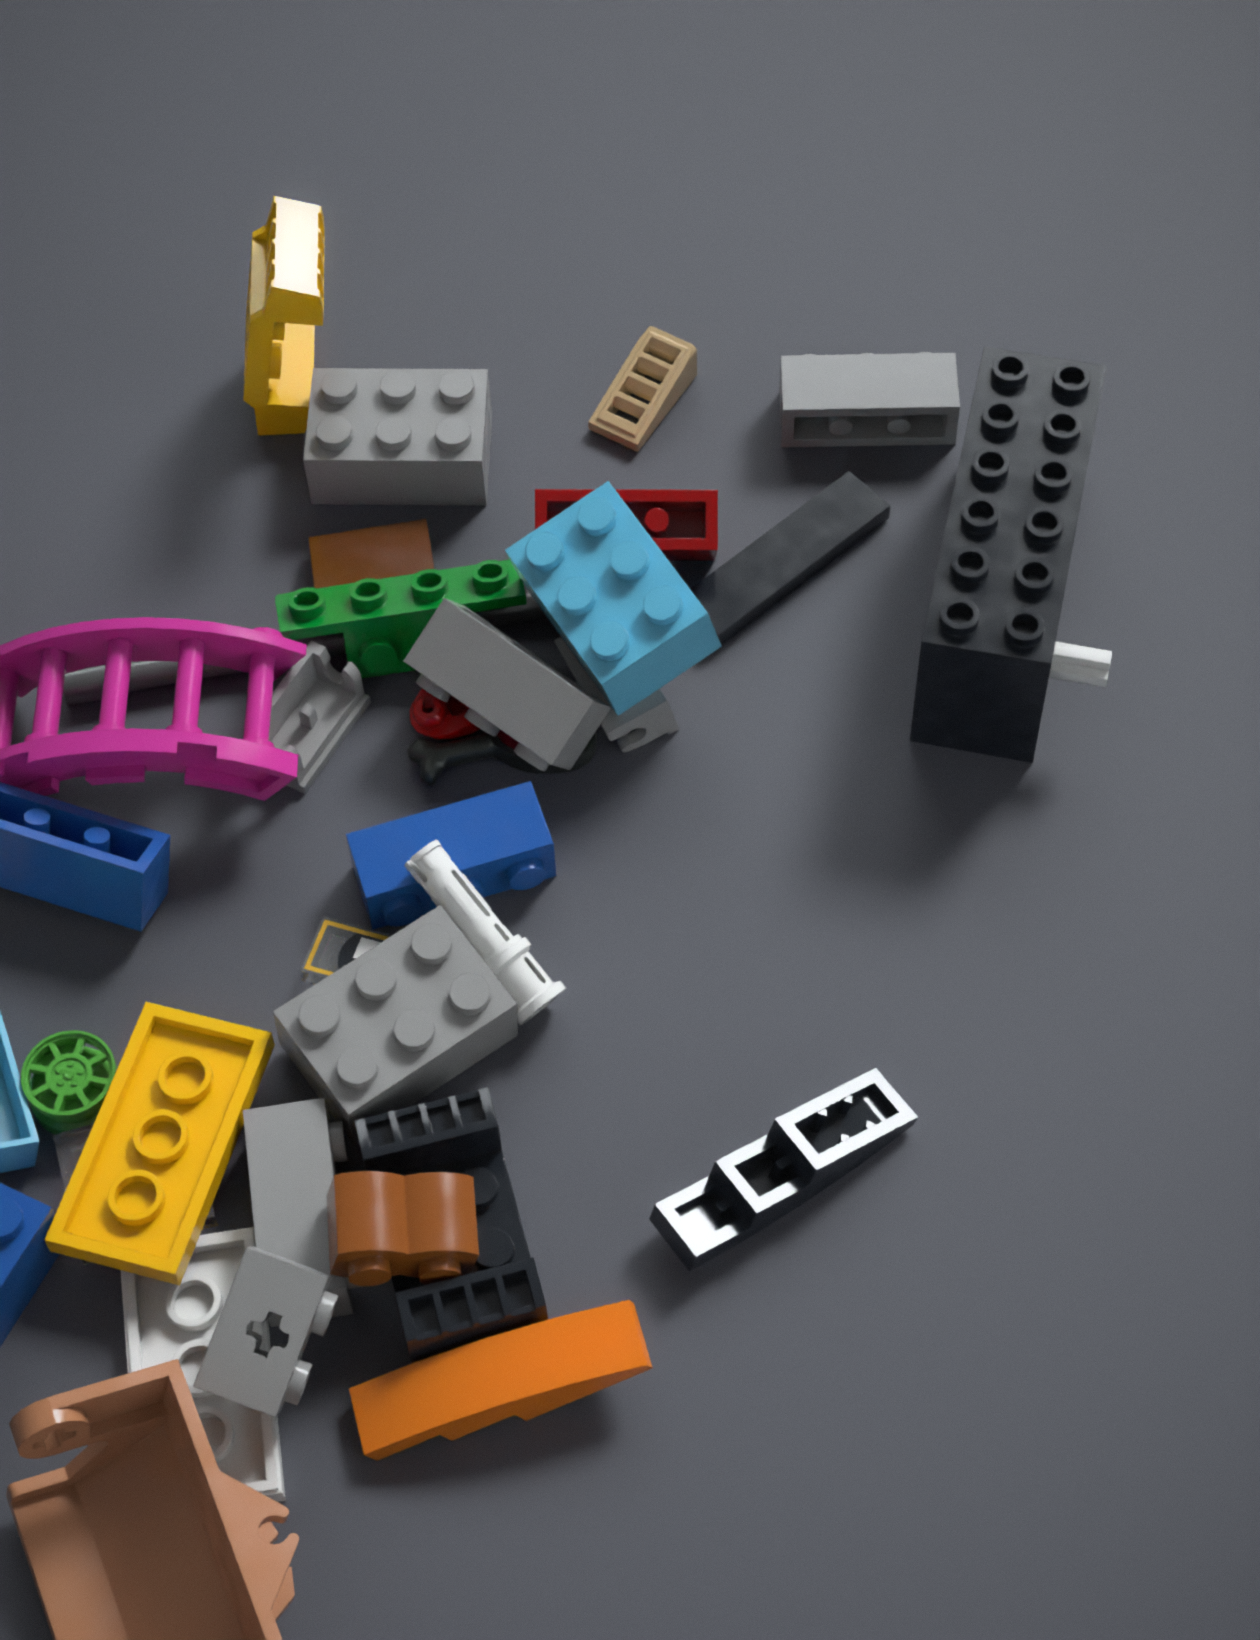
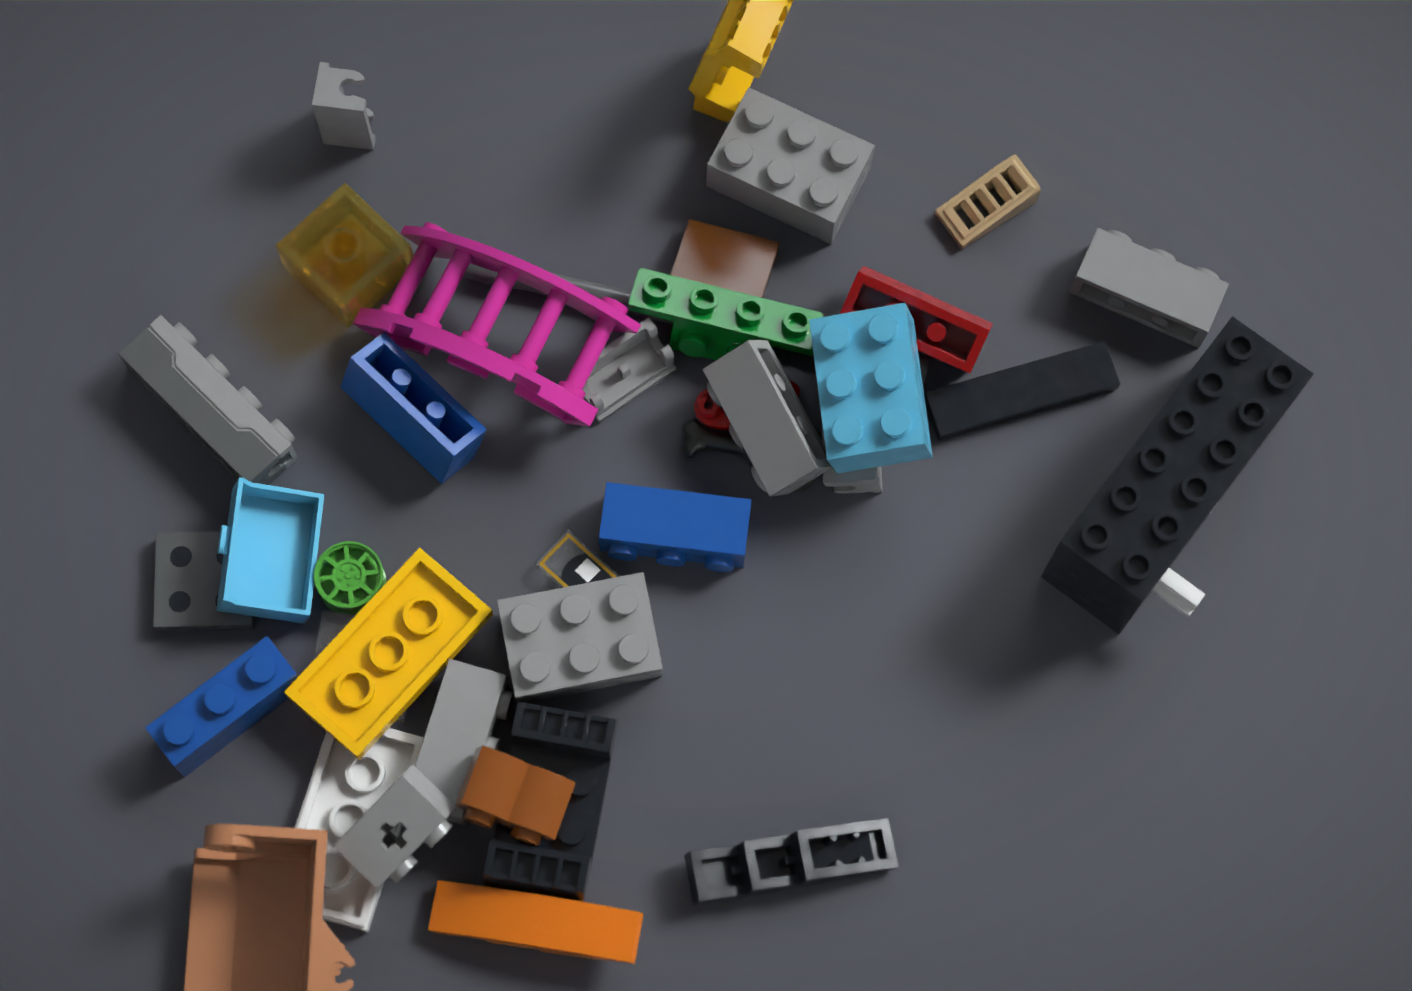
camera: 20 degrees right, 15 degrees up
(503, 953) = (672, 621): white pin -> none

